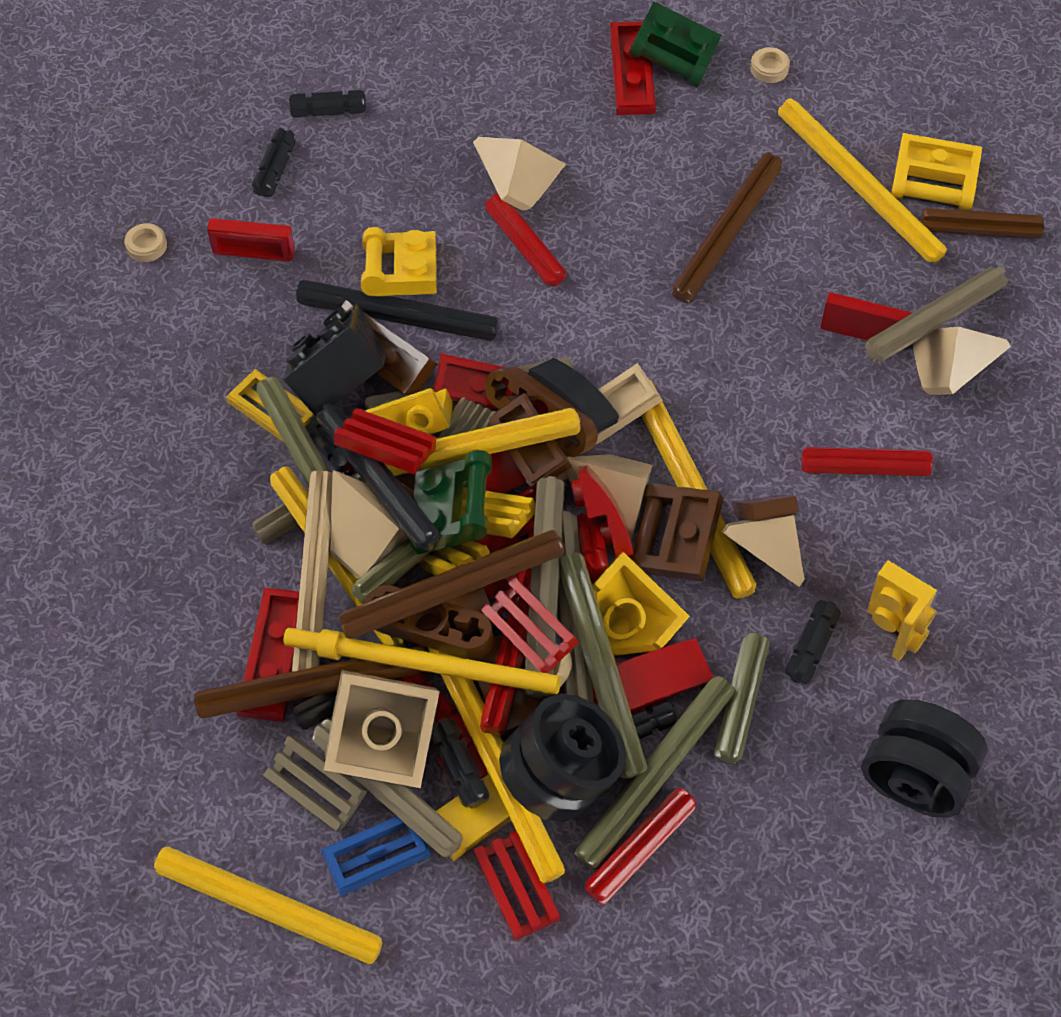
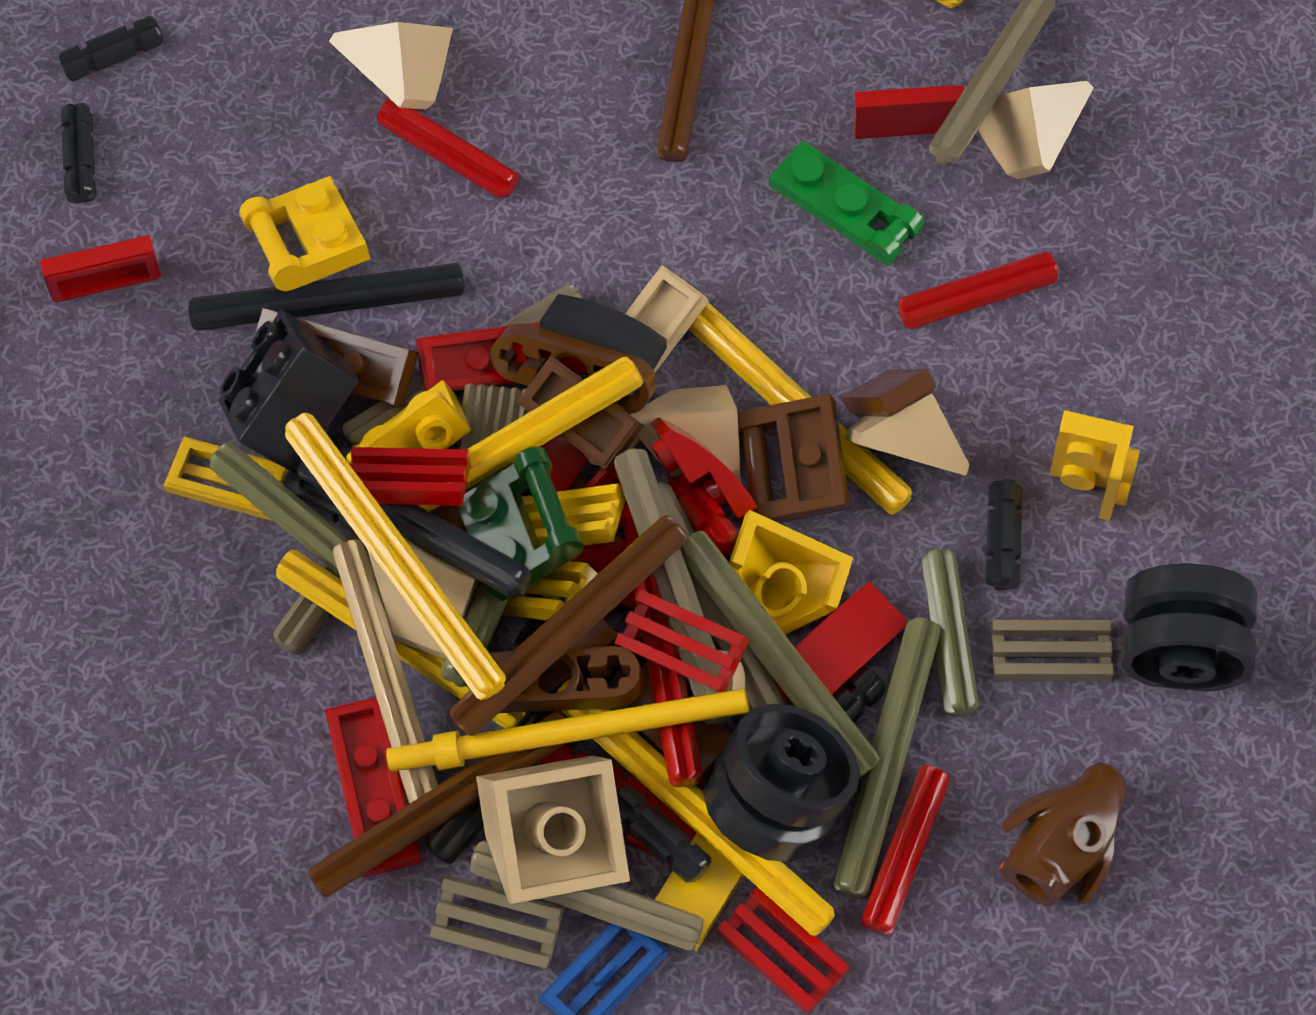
camera: 20 degrees left, 5 degrees up
(347, 492) = (395, 557): none -> yellow axle
(766, 880) = (1066, 836): none -> reddish brown animal
(793, 368) = (845, 202): none -> green plate
(822, 724) = (1052, 671): none -> dark tan tile

